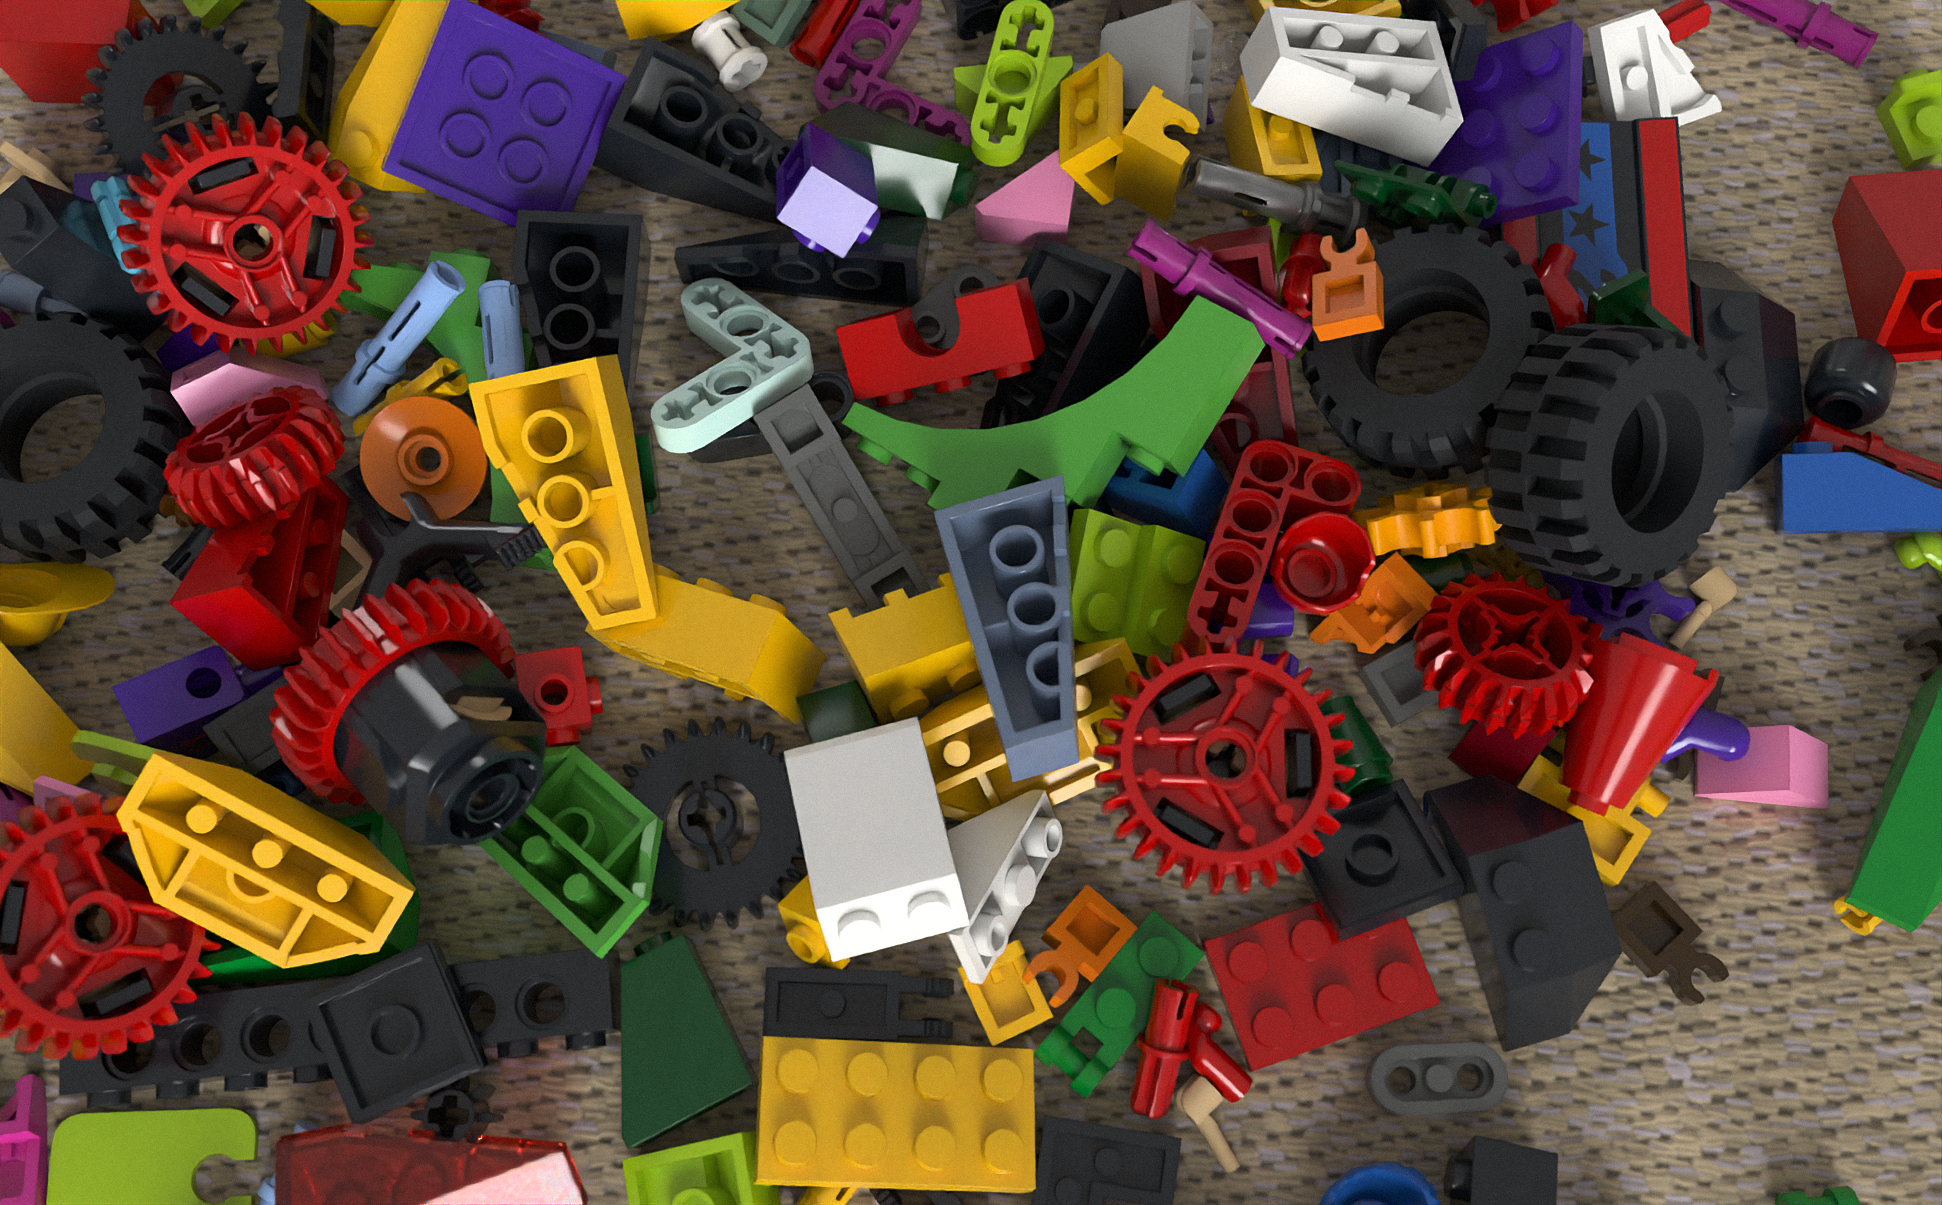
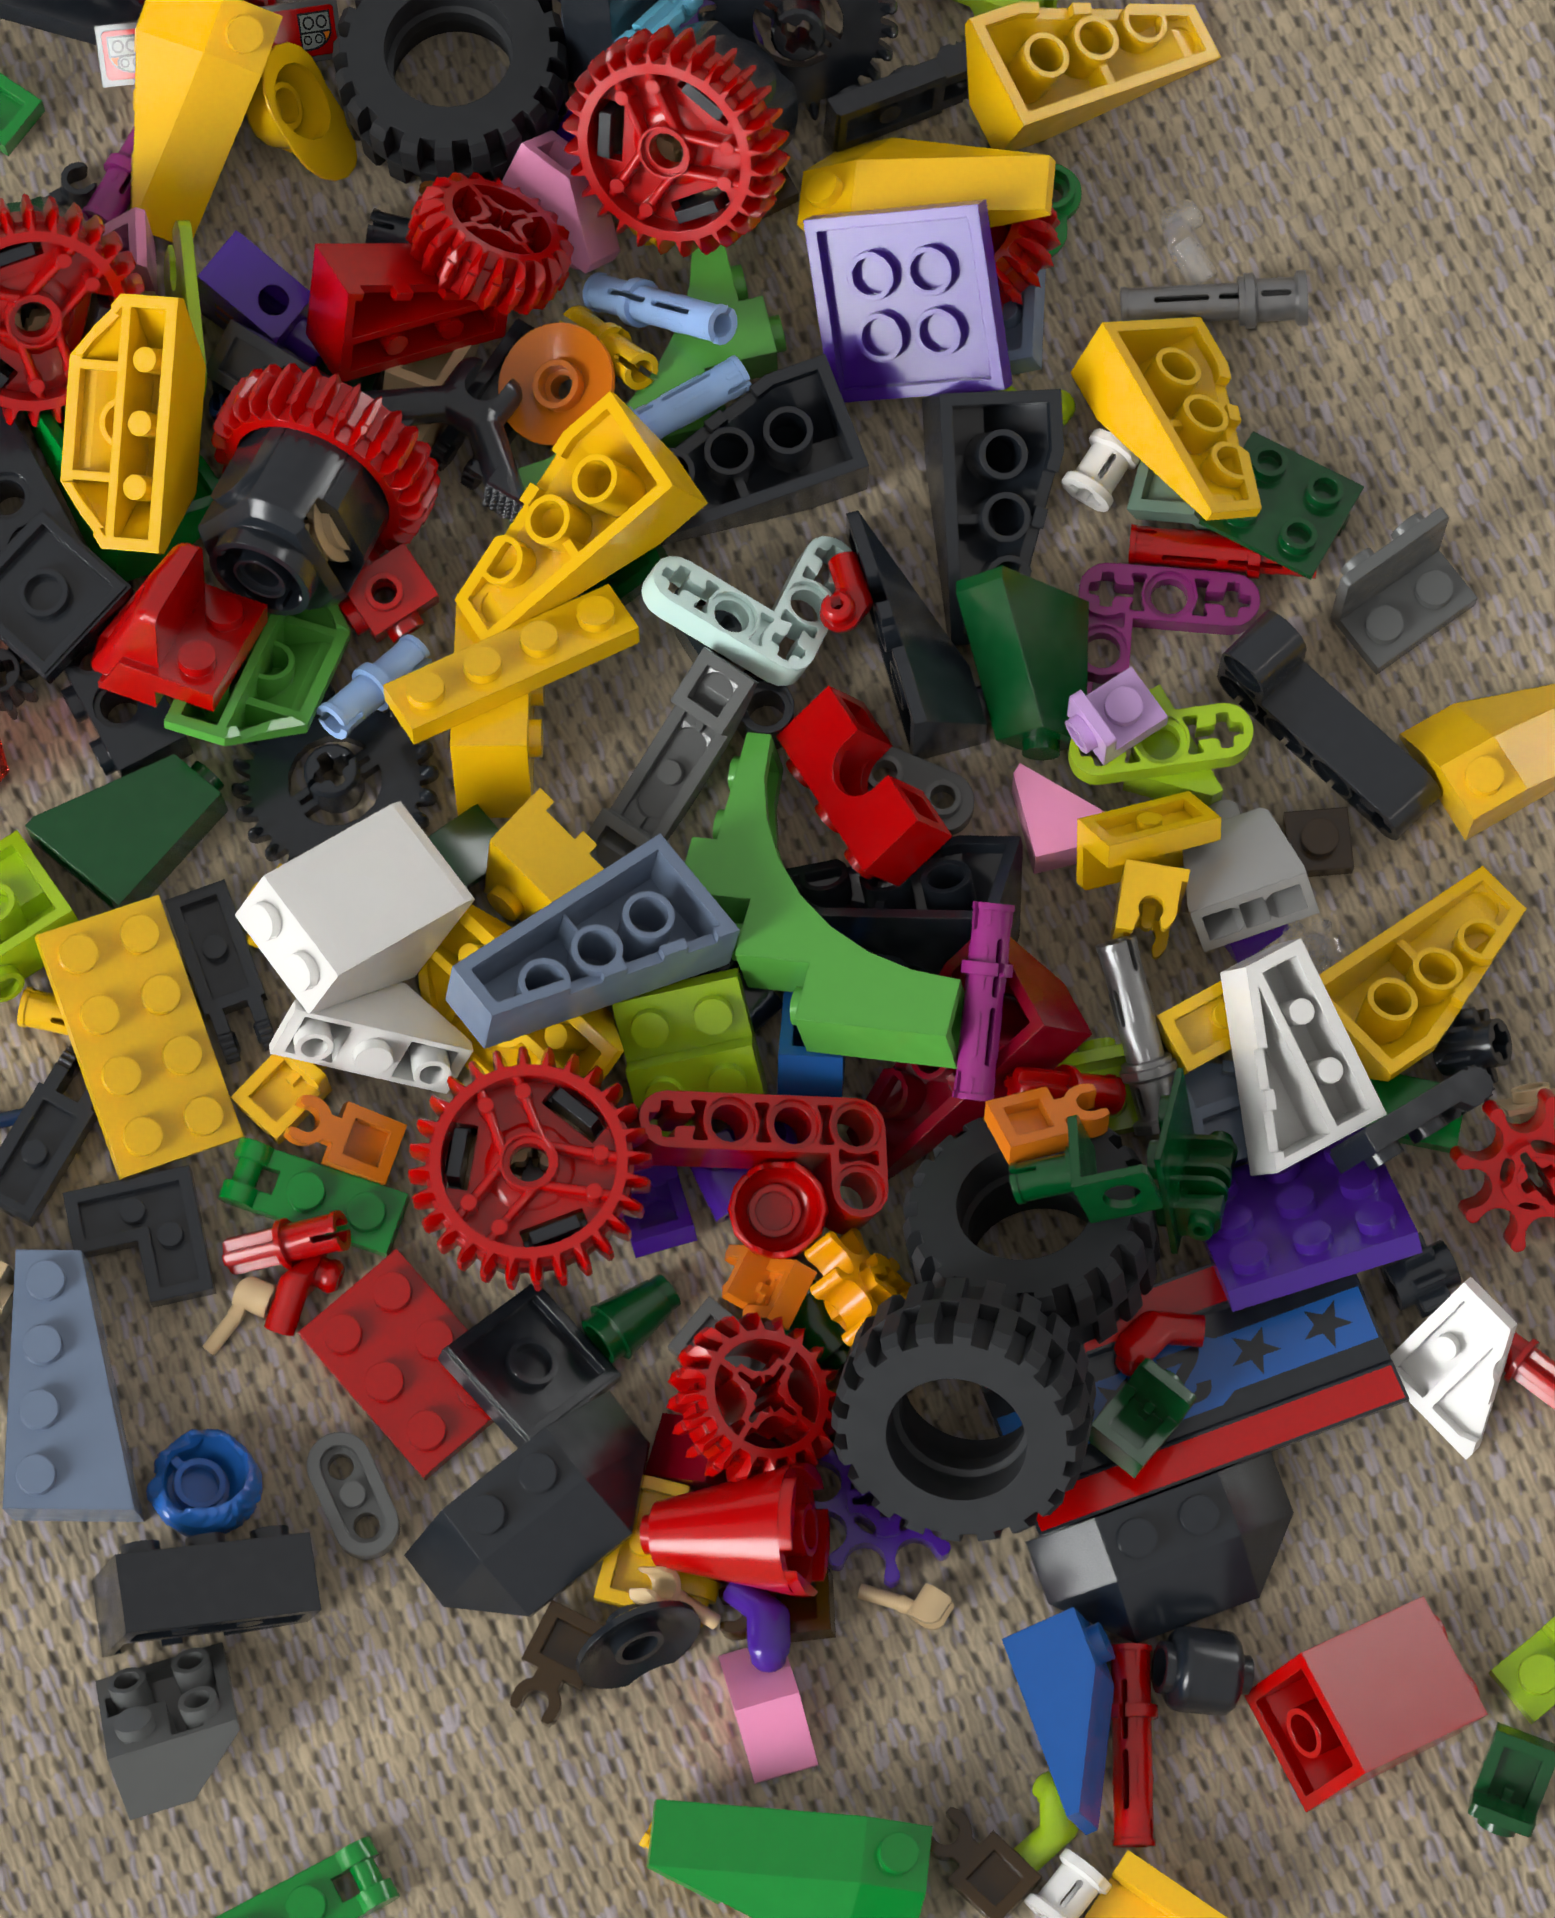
camera: 70 degrees right, 0 degrees up
(507, 911) = (178, 636): none -> red piece
(642, 743) = (366, 690): none -> light blue pin
(687, 601) = (511, 663): none -> yellow plate
(757, 285) = (851, 599): none -> red arm
(826, 192) = (940, 616): brick -> none
(980, 96) = (1114, 716): none -> lavender bracket
(1422, 267) = (1077, 1173): none -> dark green bracket
(1647, 812) = (666, 1587): none -> tan hand
(1674, 859) = (637, 1642): none -> black dish

